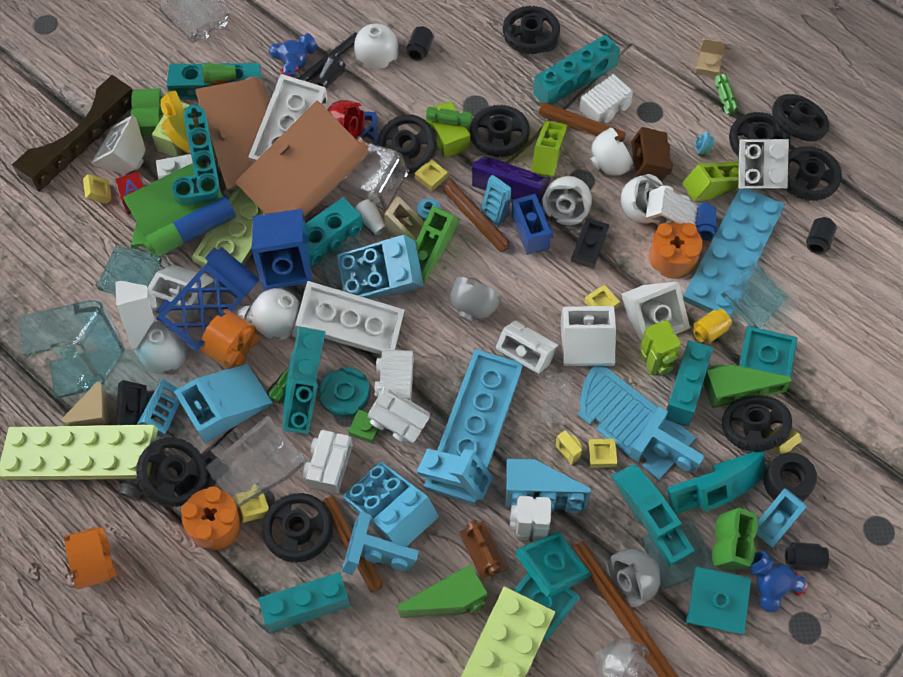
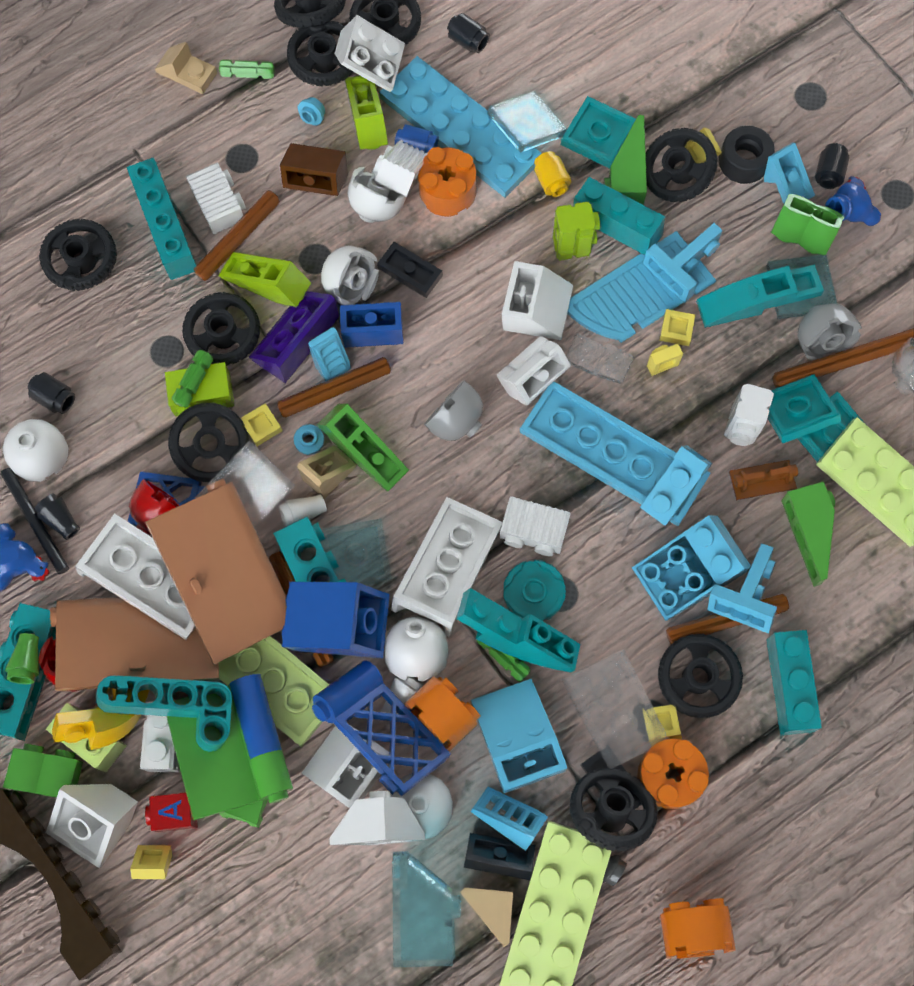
camera: 75 degrees left, 10 degrees up
(128, 266) = (295, 835): clear light blue tile -> none
(328, 461) = (625, 625): white brick -> none
(362, 428) = (585, 575): bright green plate -> none
(381, 268) = (386, 513): medium azure slope -> none
(398, 415) = (591, 530): white brick -> none
(536, 479) = (711, 403): medium azure slope -> none
(602, 297) = (490, 277): light yellow plate -> none
(610, 154) = (299, 212): white cylinder -> none
(654, 304) = (518, 225): white slope -> none
(718, 600) = (862, 261): teal plate -> none
(721, 486) = (747, 226): teal slope -> none

